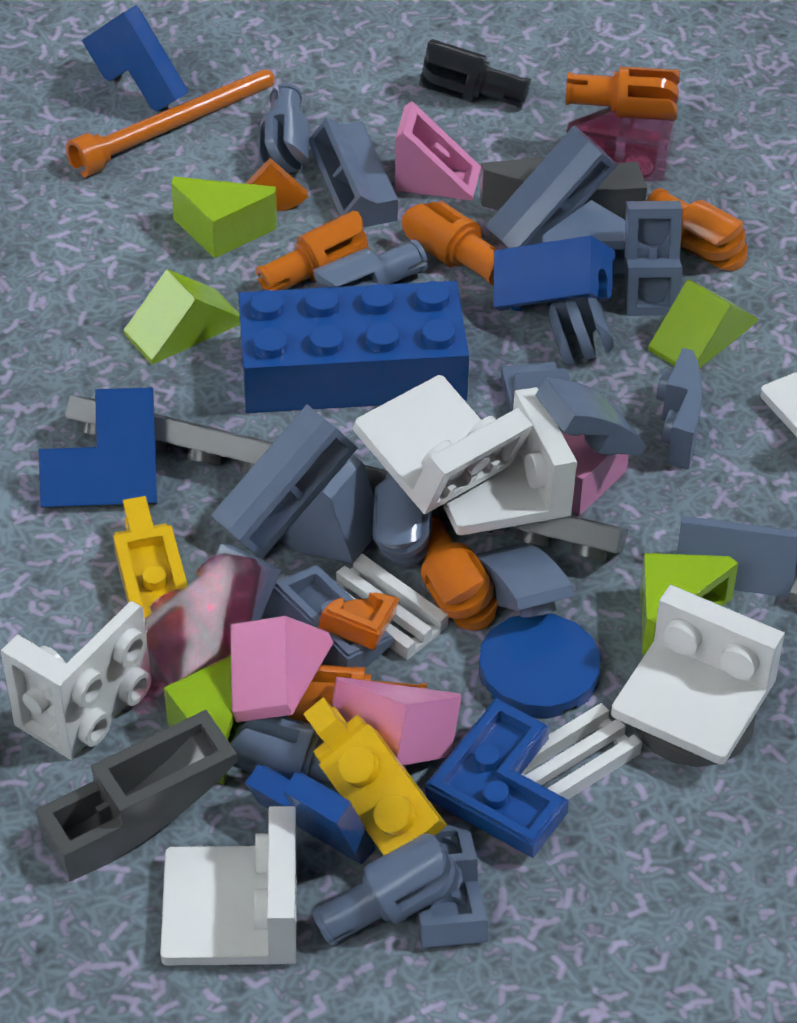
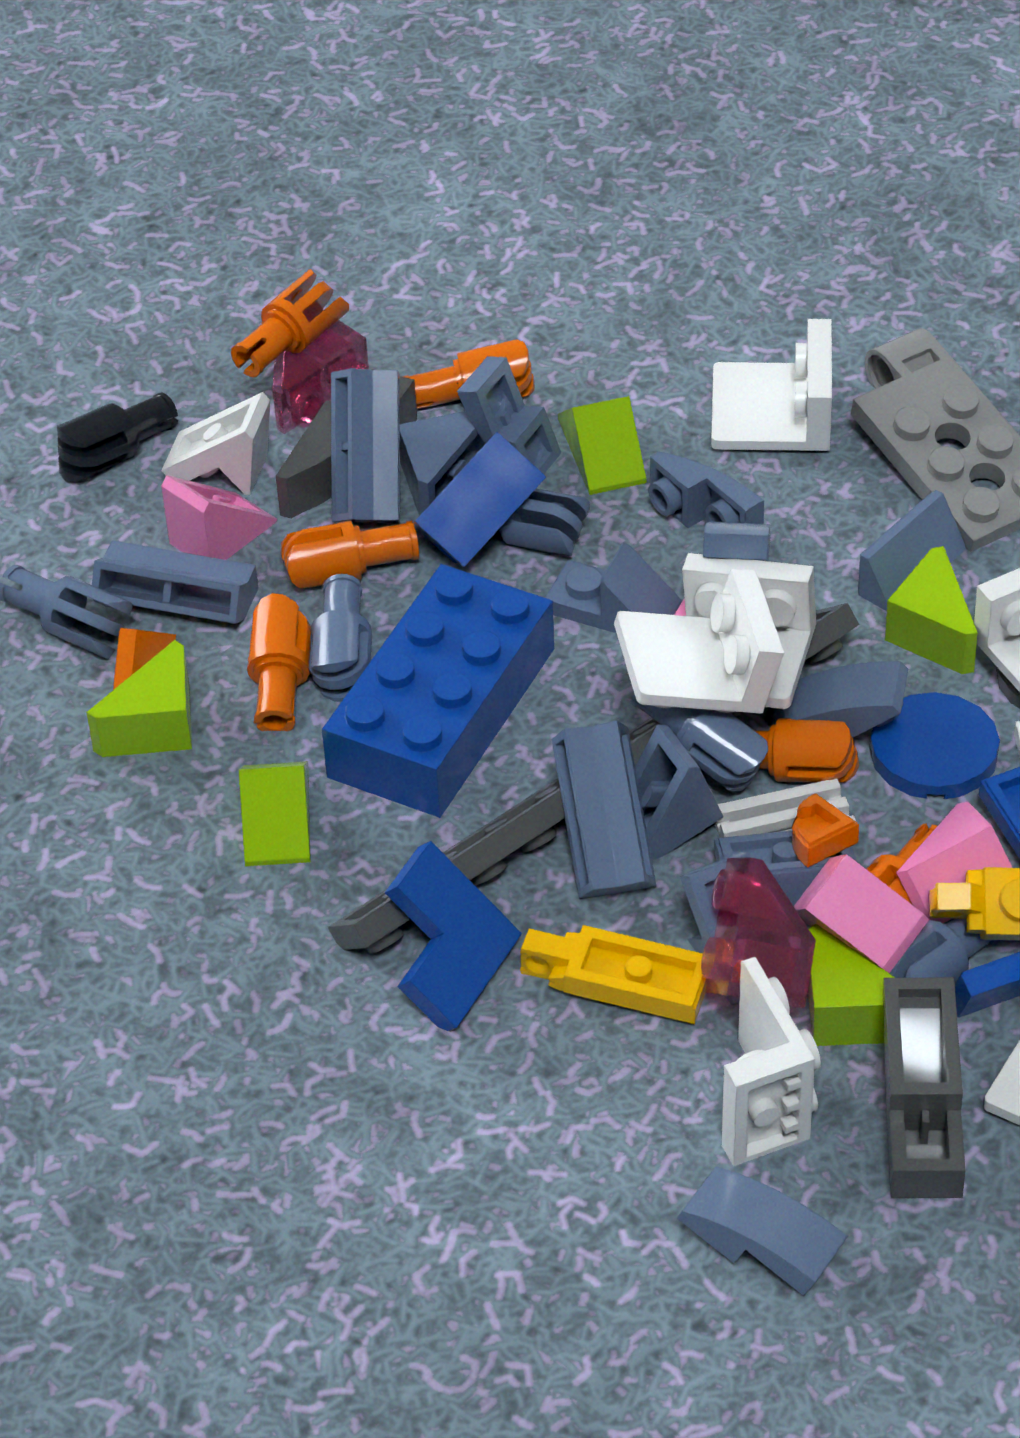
camera: 55 degrees left, 0 degrees up
(505, 133) = (226, 441): none -> white slope

